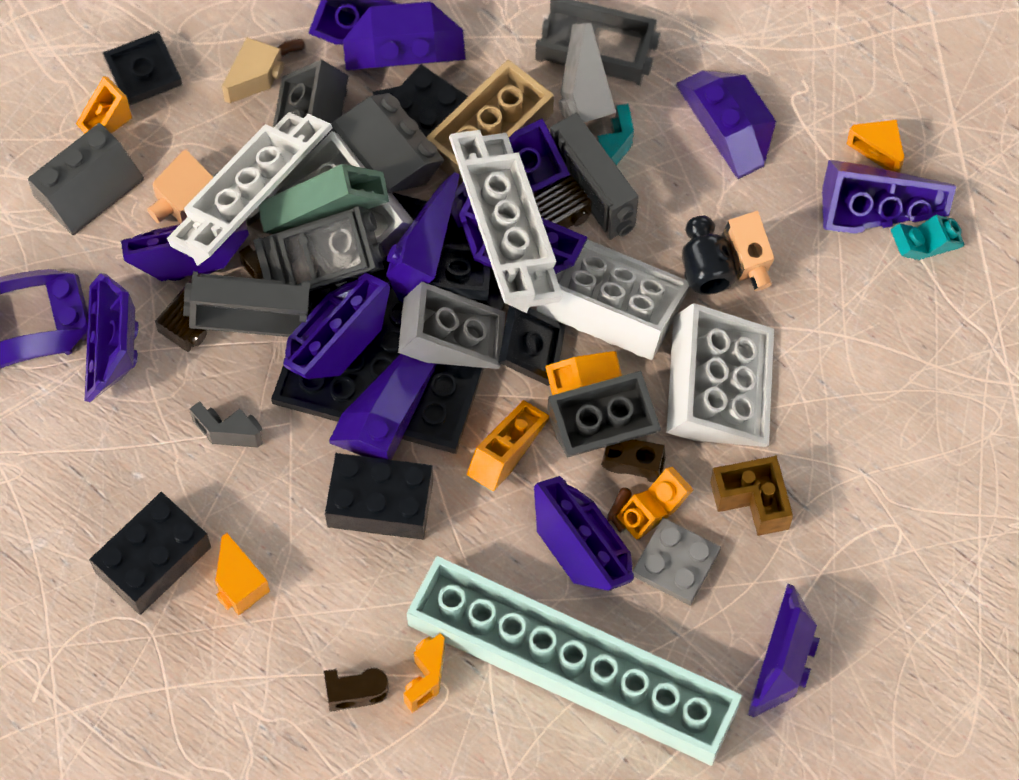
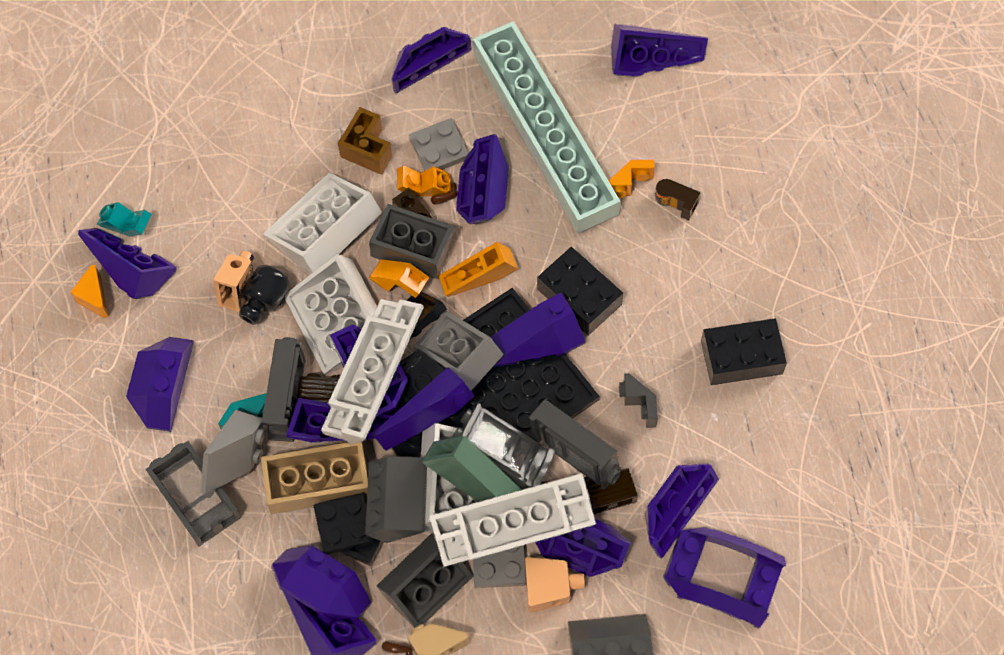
camera: 140 degrees left, 0 degrees up
(238, 578) = (700, 302): light orange slope -> none
(338, 329) = (519, 398): dark purple wedge -> none

